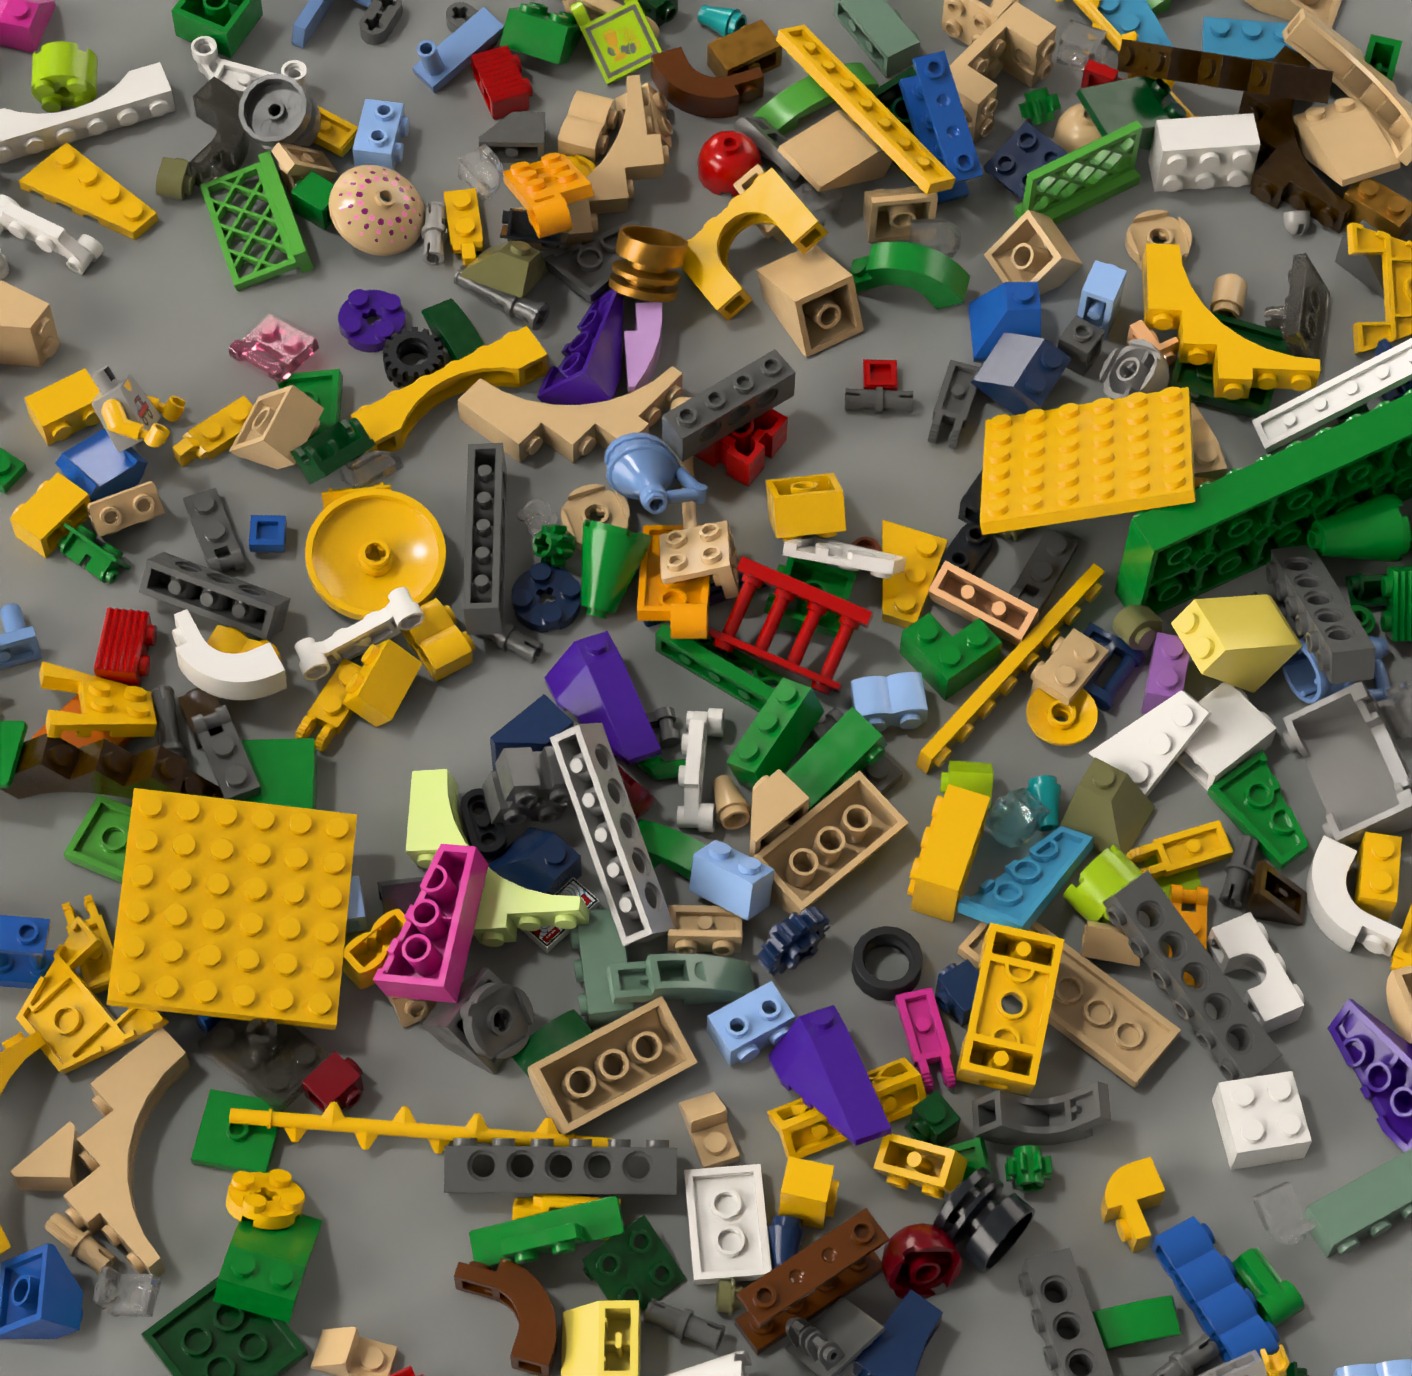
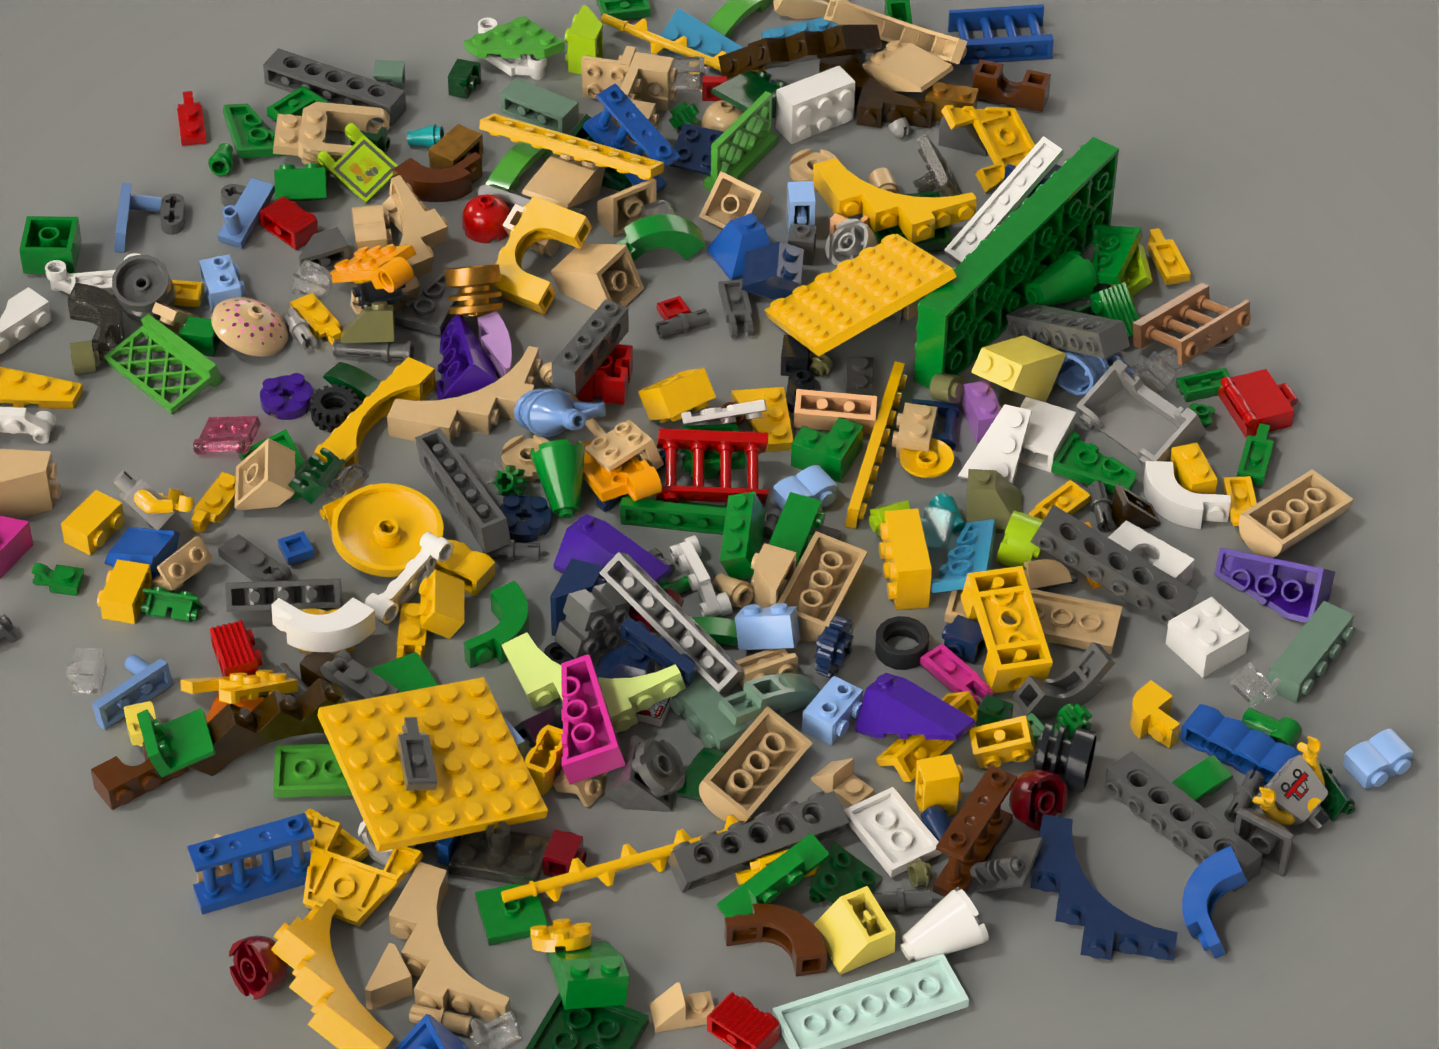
camera: 25 degrees left, 15 degrees down
(204, 903) = (416, 757): none -> dark grey hinge
(445, 748) = (511, 609): none -> green arch
(576, 865) = (658, 649): none -> dark blue plate

